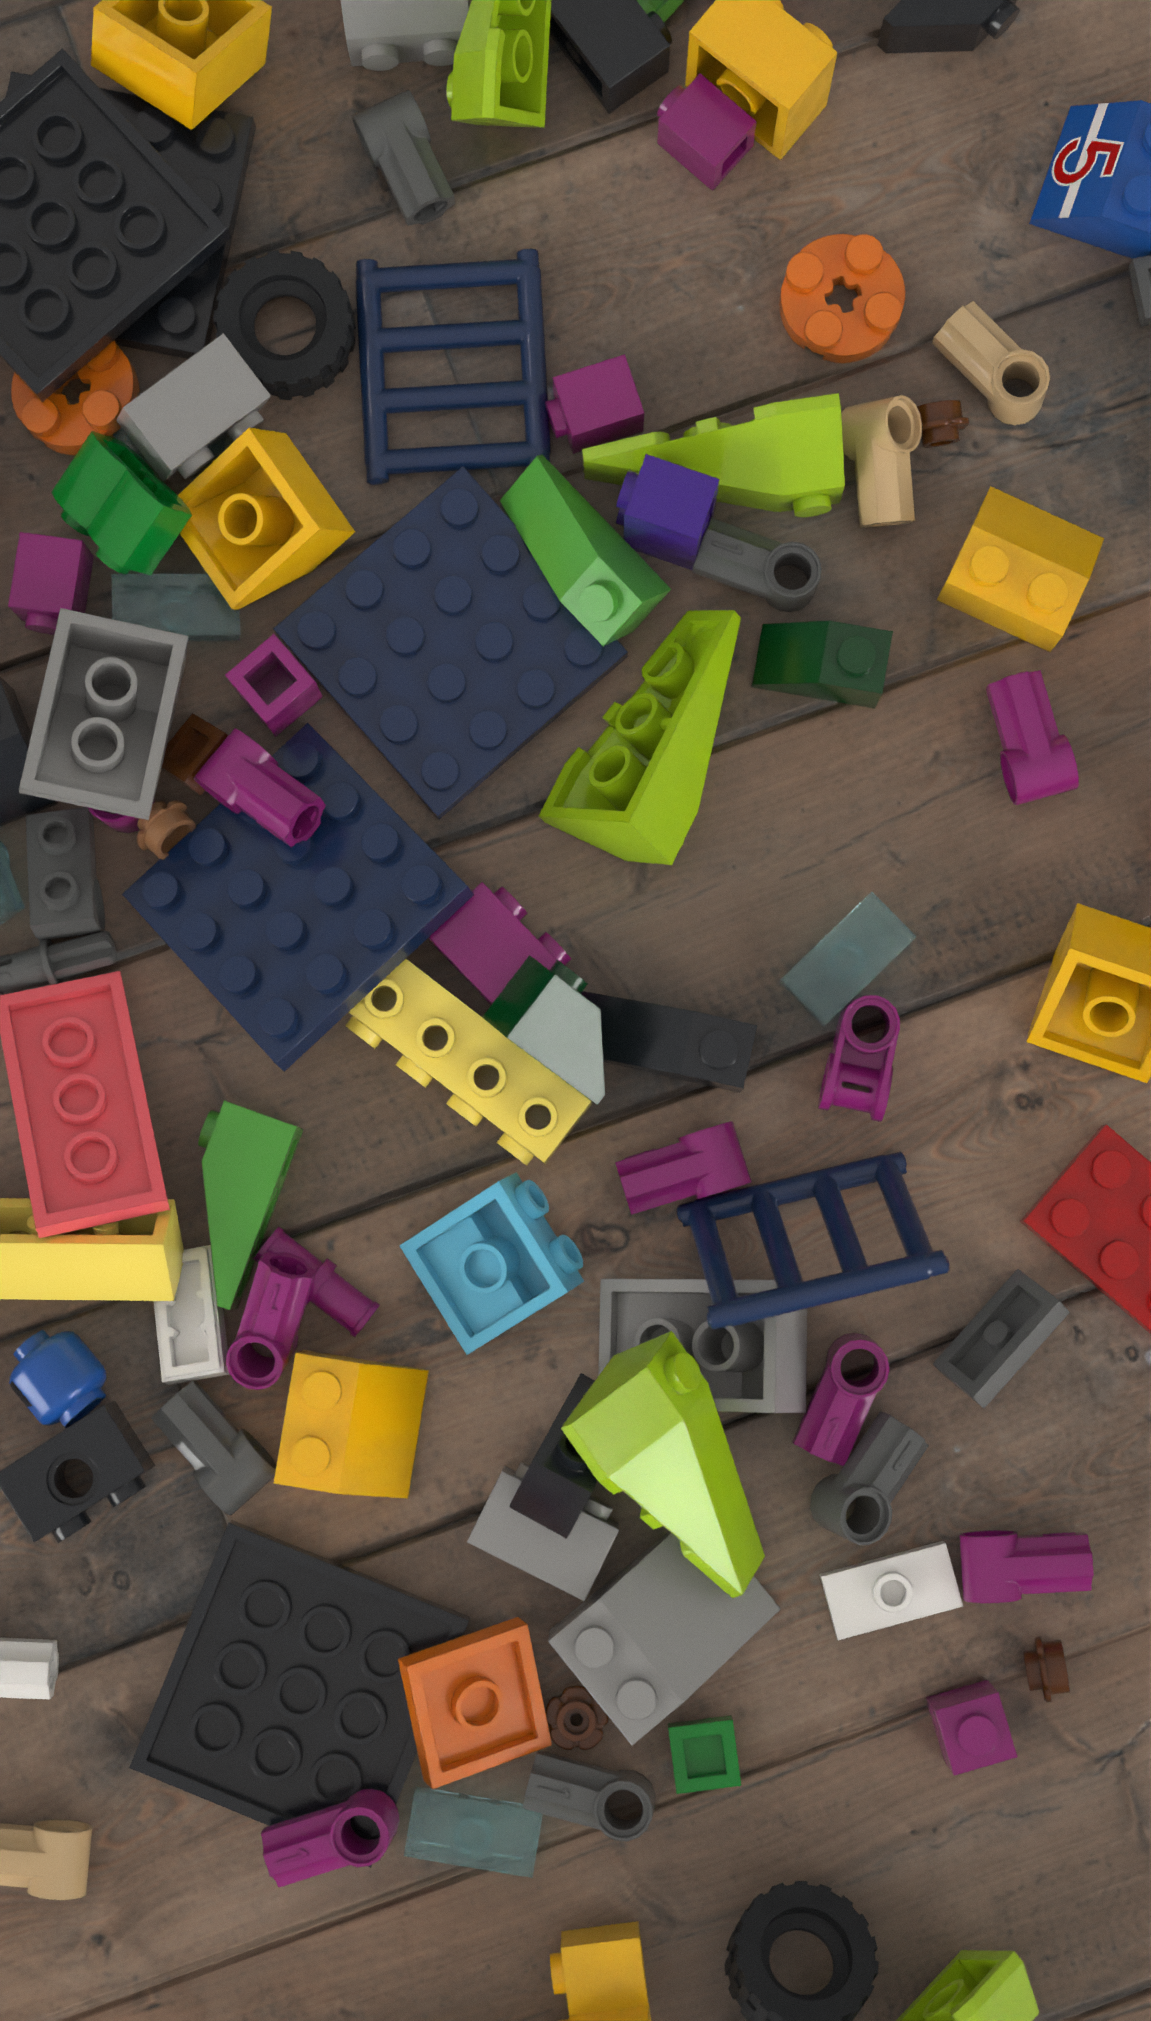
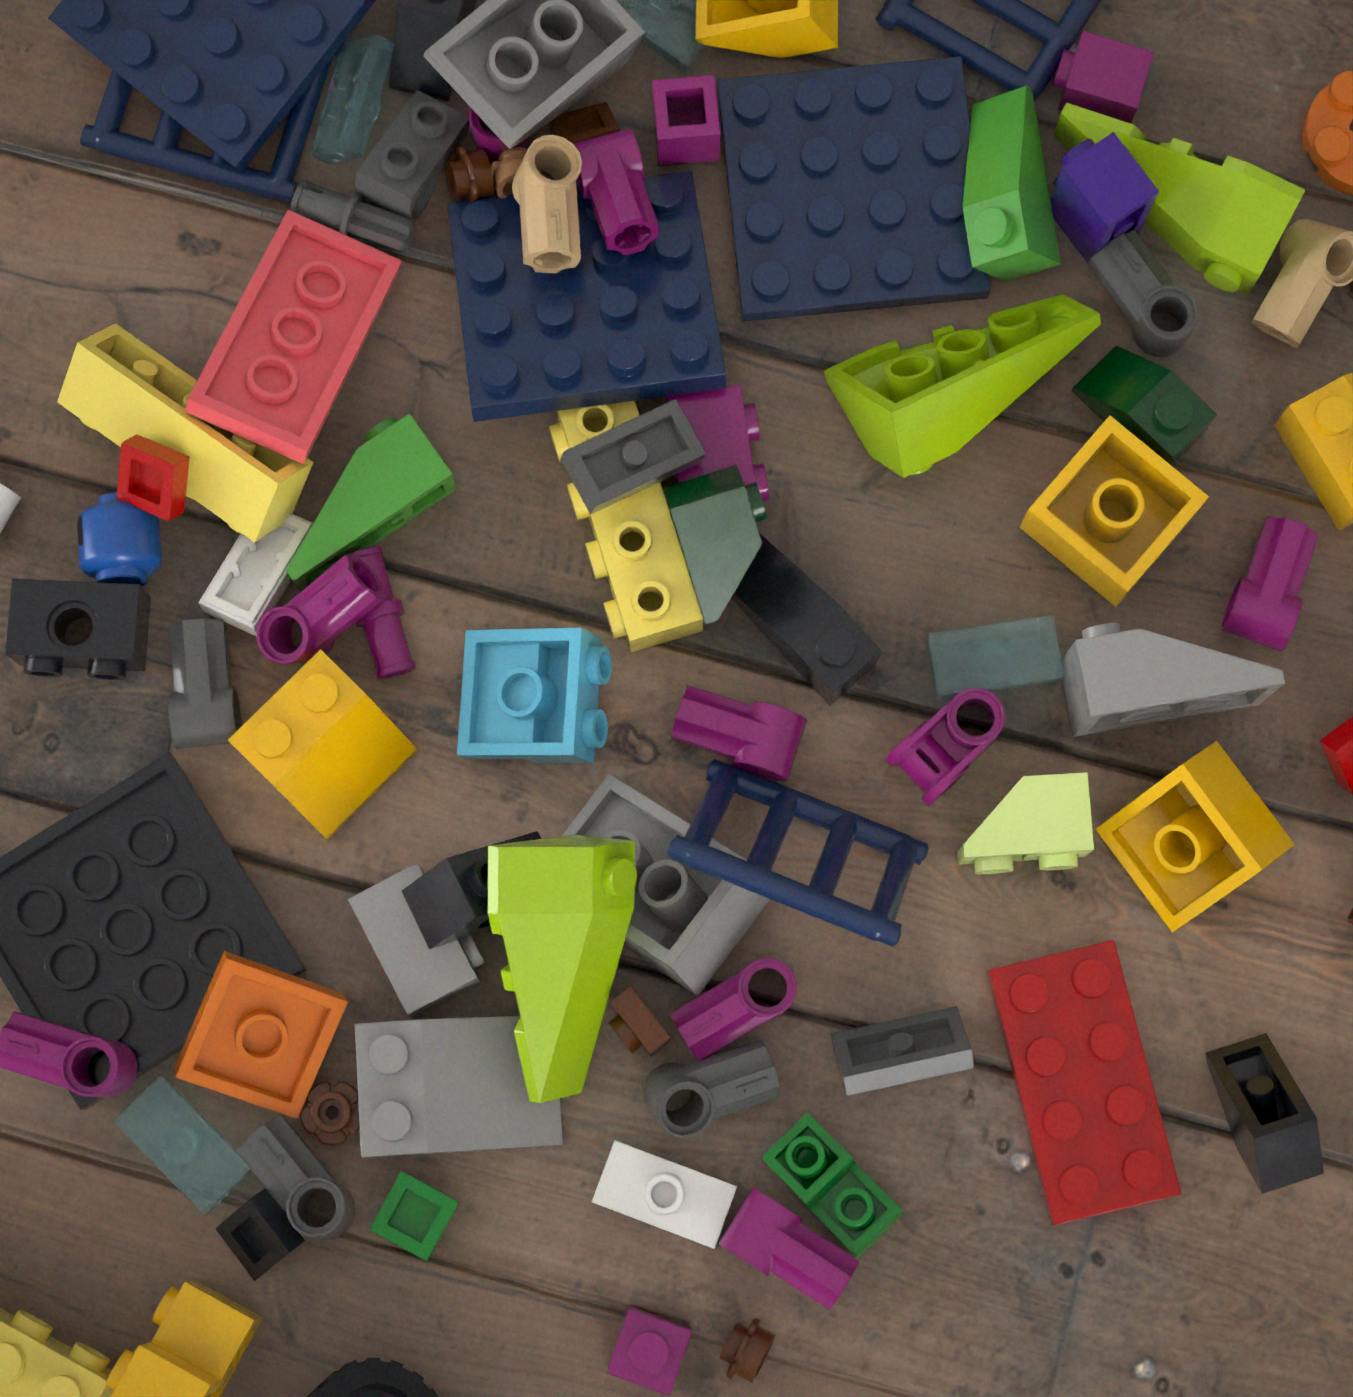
camera: 30 degrees right, 5 degrees down
(50, 1309) = (152, 477): none -> red plate
(124, 858) = (469, 175): none -> reddish brown plate
(218, 846) = (549, 205): none -> tan piece
(440, 1009) = (632, 456): none -> dark grey plate
(590, 1861) = (259, 1234): none -> black plate
(772, 1470) = (636, 1024): none -> reddish brown plate
(863, 770) = (1113, 511): none -> yellow brick
(974, 1074) = (1037, 820): none -> yellowish green slope
(982, 897) = (1151, 678): none -> light grey slope
(1020, 1486) = (832, 1185): none -> green slope

